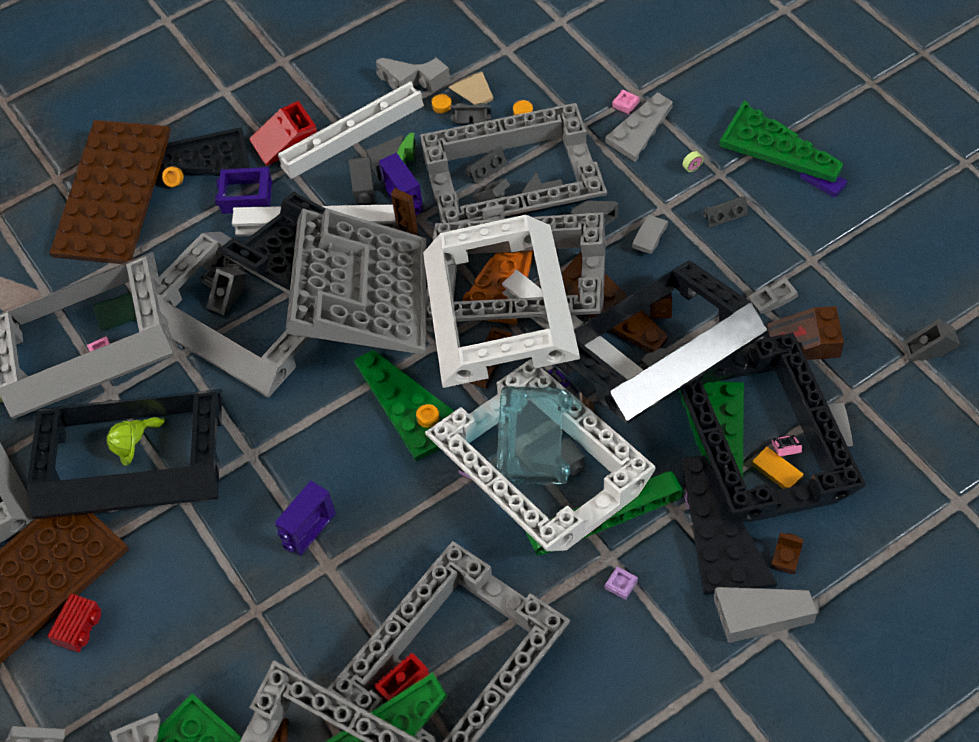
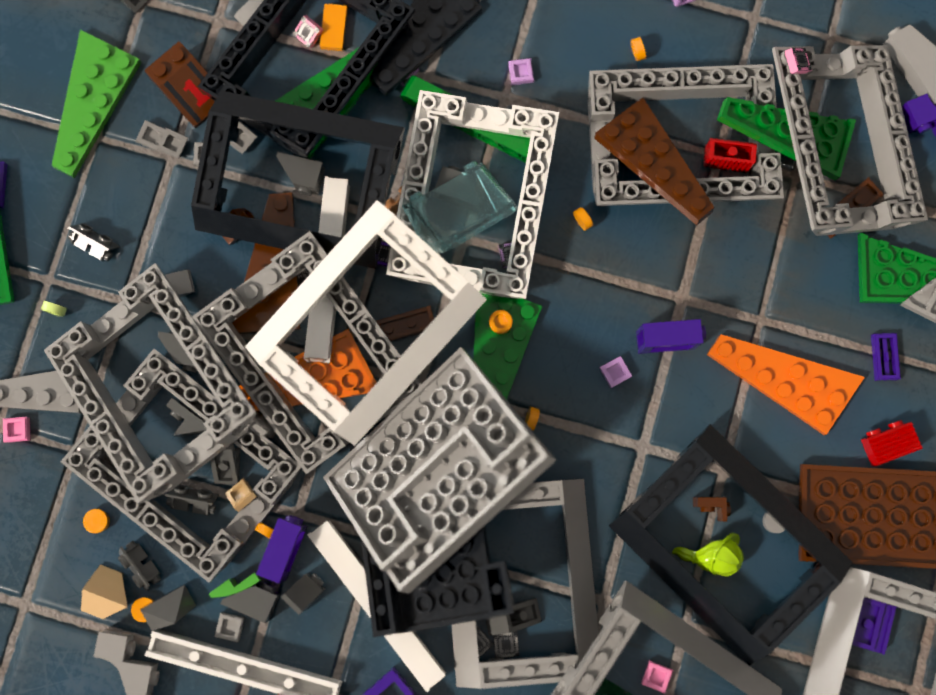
camera: 135 degrees left, 25 degrees up
(150, 692) = (885, 357): none -> dark purple tile
(169, 459) = (708, 504): none -> reddish brown bracket
(185, 594) = (799, 385): none -> orange wing
(319, 473) = (615, 372): none -> lavender tile
(340, 391) = (532, 417): none -> light orange tile
(383, 136) = (229, 627): none -> light grey tile
(404, 212) = (318, 509): reddish brown tile -> none
(426, 189) = (264, 530): none -> light orange tile
(427, 113) = (168, 608): none -> dark grey slope
(454, 533) = (583, 218): none -> light orange tile
(461, 612) = (648, 151): none -> reddish brown wing
(463, 189) = (240, 495): none -> tan tile
(561, 688) = (638, 49): none -> light orange tile
(588, 142) = (71, 360): none -> light grey slope
(853, 280) = (94, 89): none -> bright green wing

